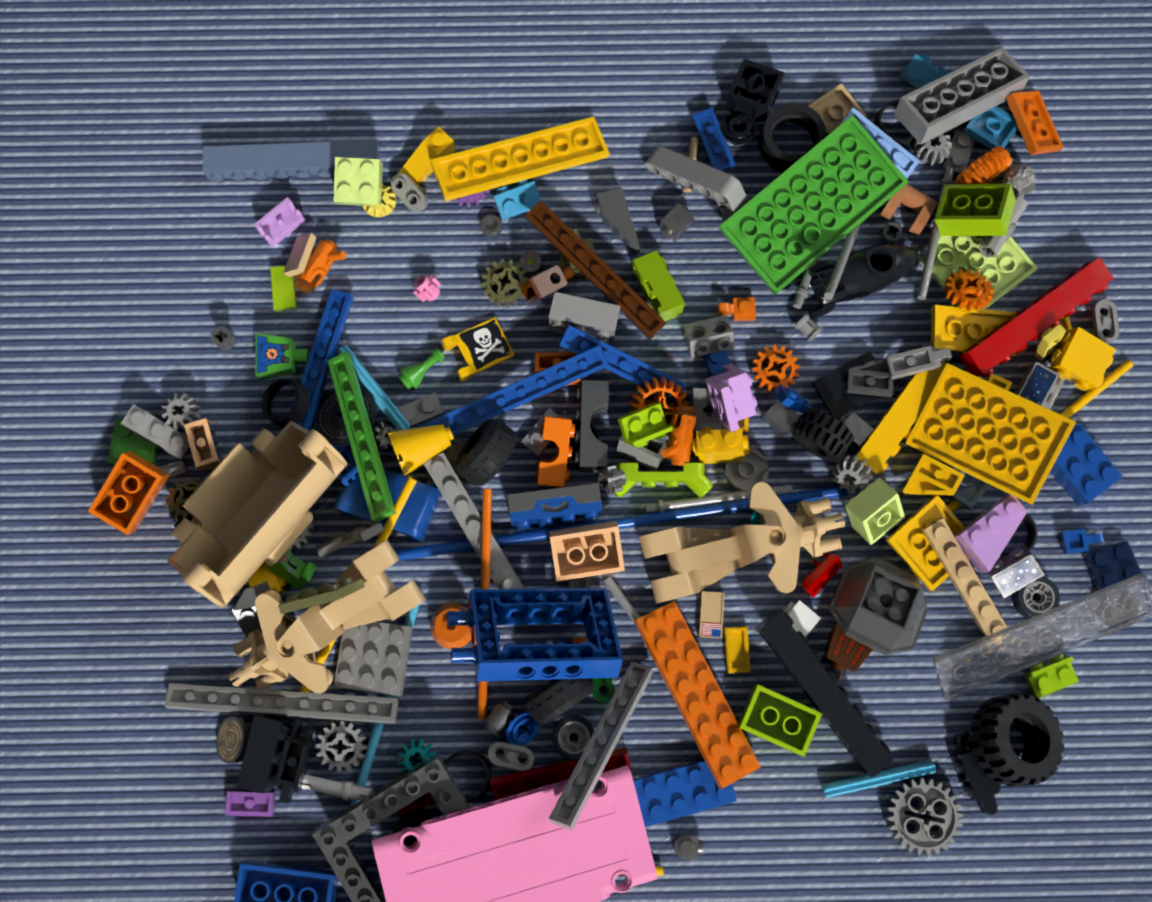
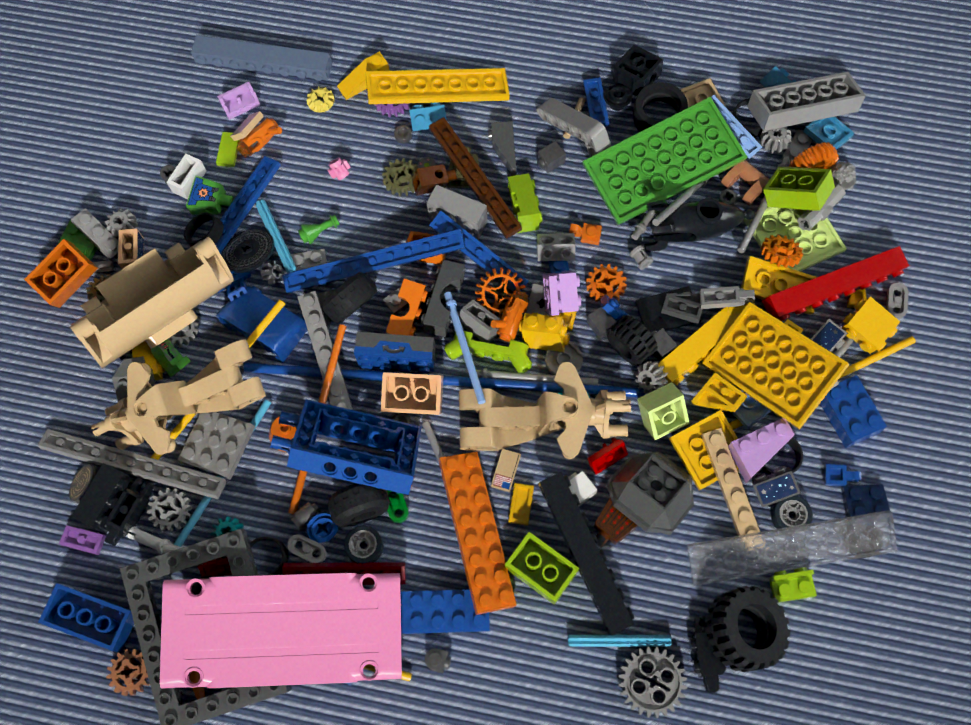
camera: 20 degrees right, 10 degrees down
(242, 337) = (184, 174): none -> white piece
(325, 593) = (178, 372): olive plate -> none
(357, 534) = (218, 344): light grey tile -> none
(358, 181) = (305, 79): yellowish green brick -> none
(361, 437) = (252, 266): bright green plate -> none
(408, 191) = (345, 95): light grey plate -> none
(419, 445) = (297, 281): yellow cone -> none
(480, 347) = (369, 222): flag -> none
(600, 746) = (379, 550): light grey plate -> none
(604, 433) = (451, 305): none -> light blue bar
(612, 479) = (446, 339): flat silver gear -> none
(644, 425) = (483, 300): lime bracket -> none
(1034, 122) = (864, 134): orange plate -> none
(1050, 341) = (843, 305): light yellow plate -> none

